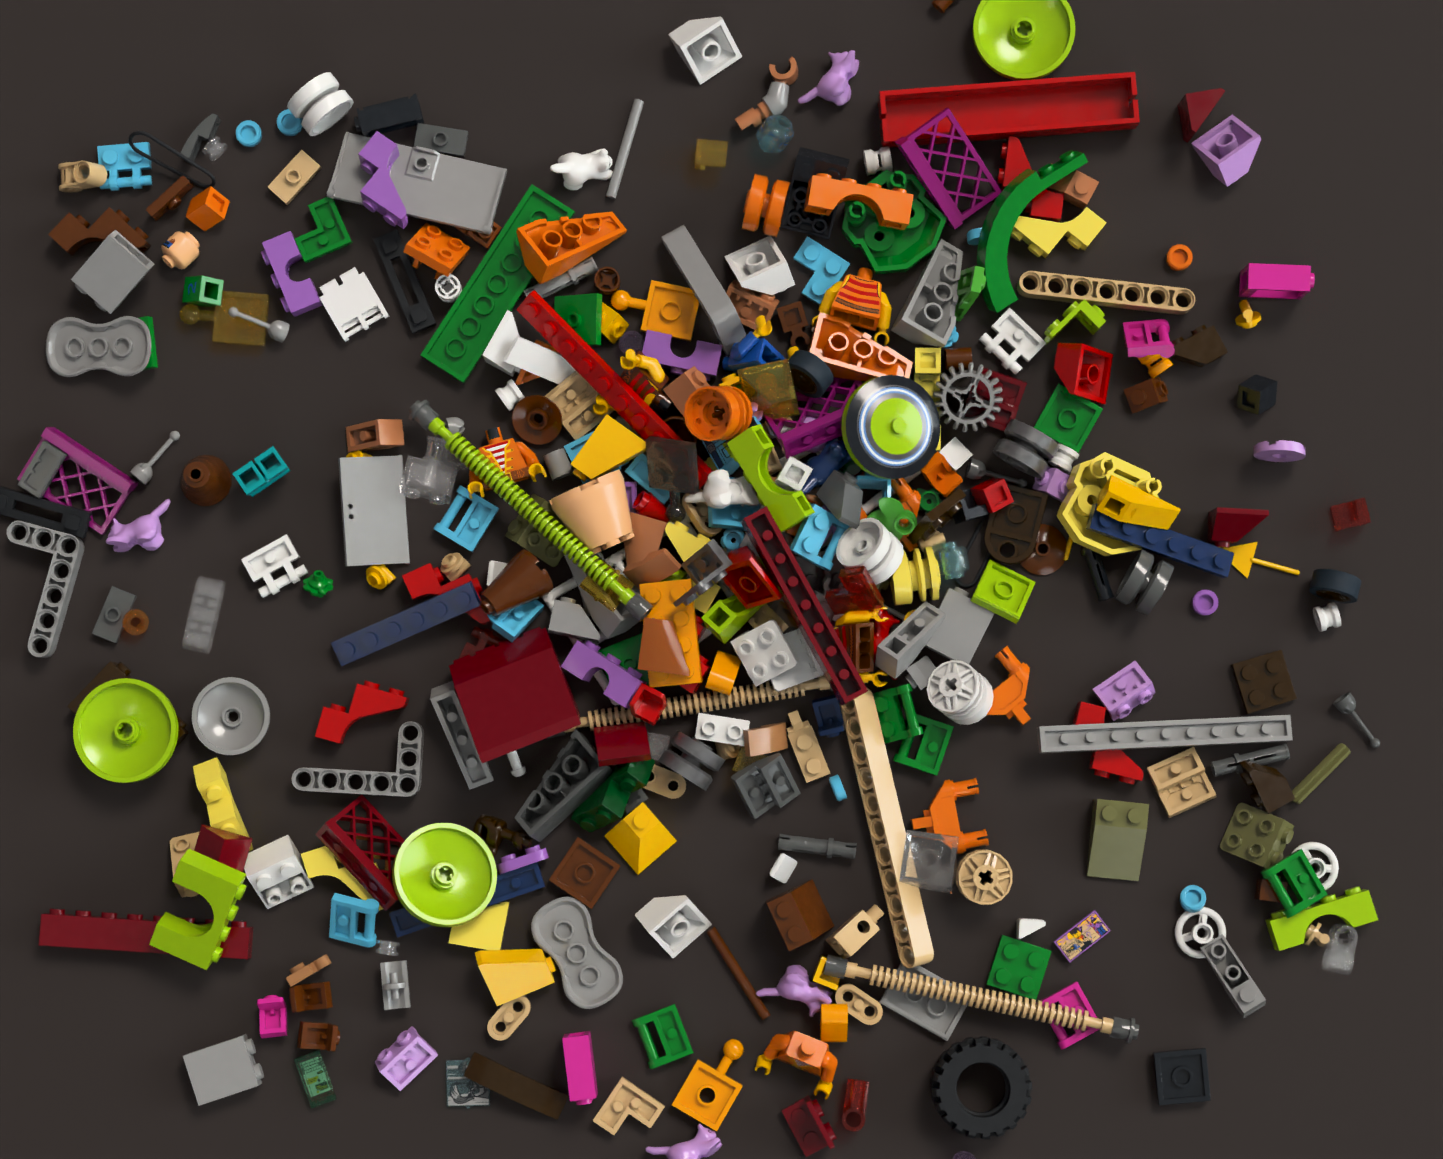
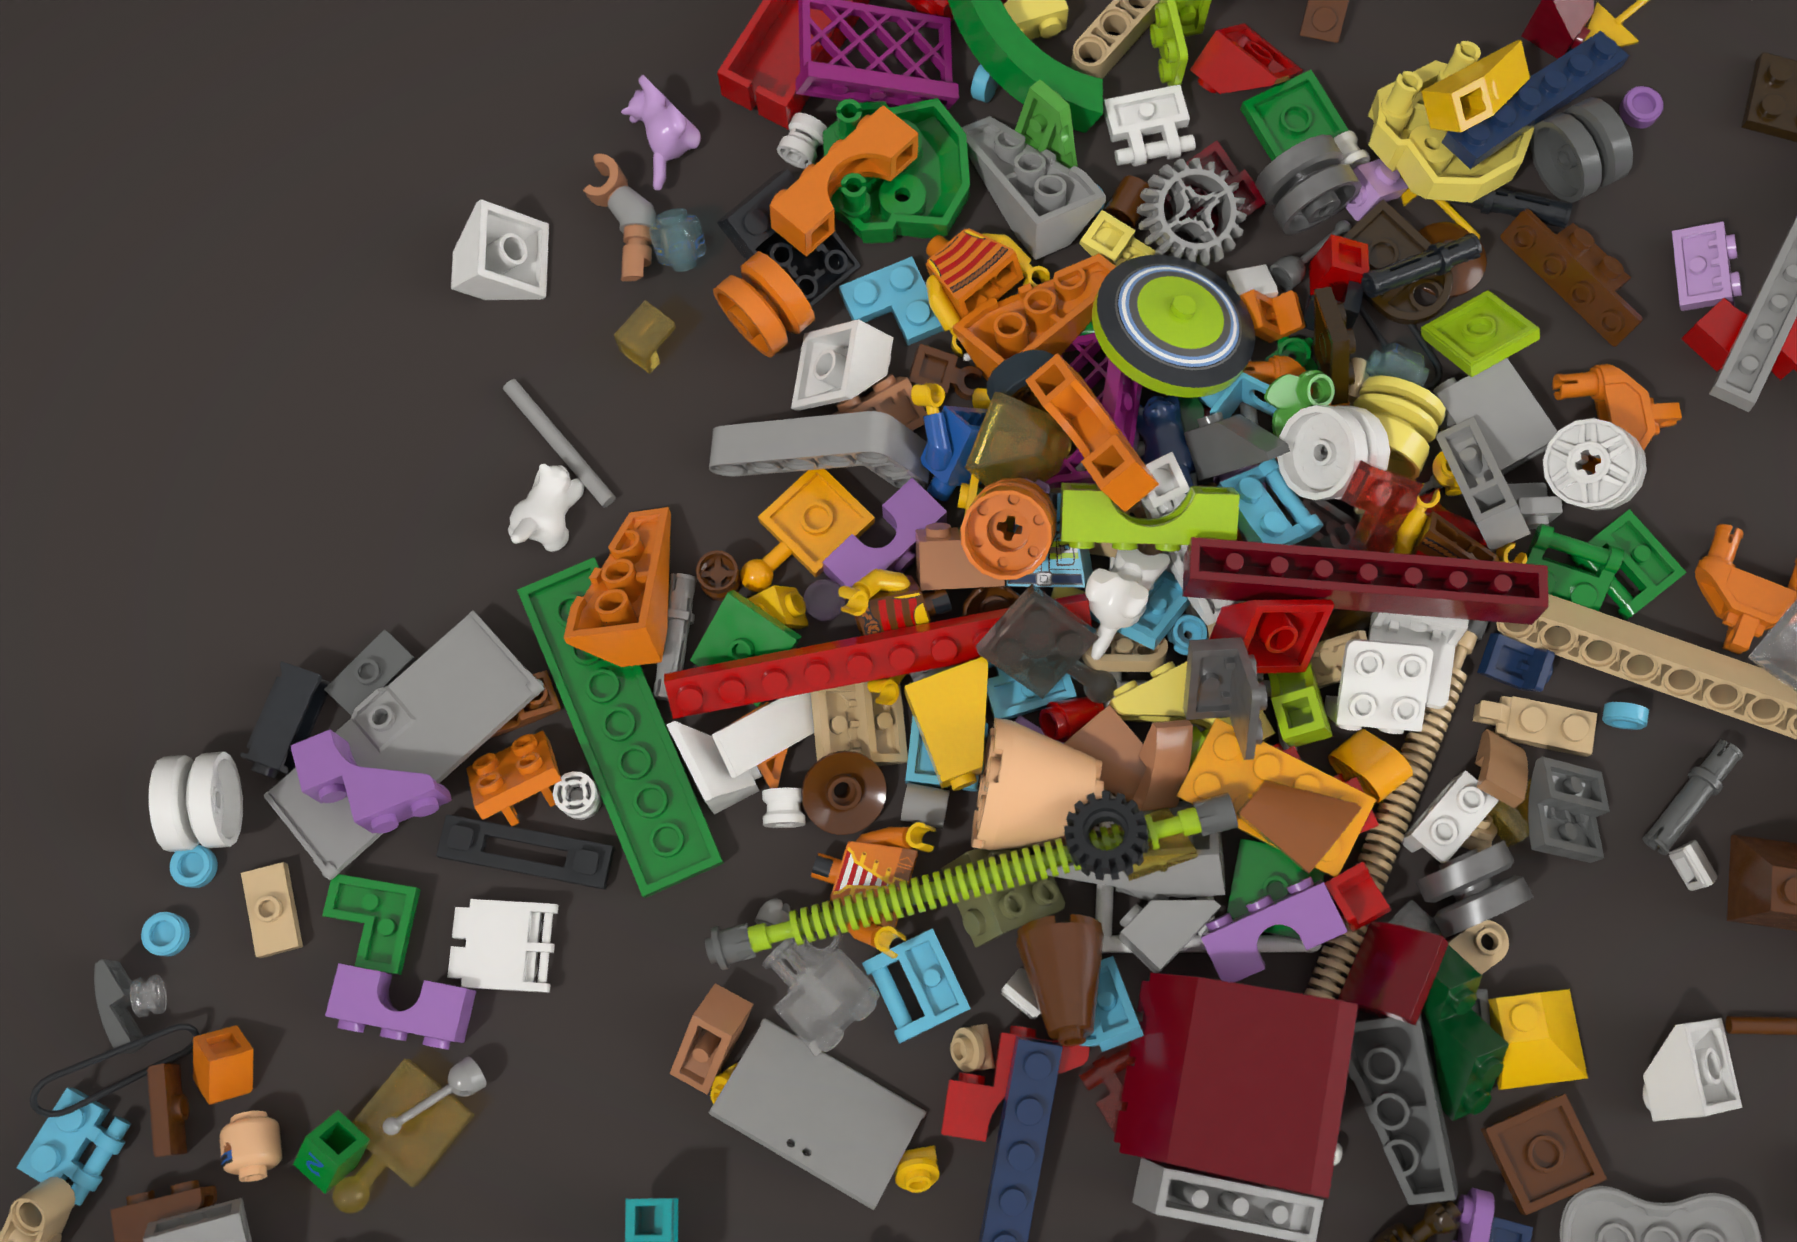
camera: 50 degrees left, 10 degrees down
(590, 574) = (1106, 810): none -> black tyre
(806, 402) = (1104, 447): none -> orange arch
(1018, 537) = (1437, 260): none -> black pin
(1078, 623) = (1577, 272): none -> reddish brown bracket

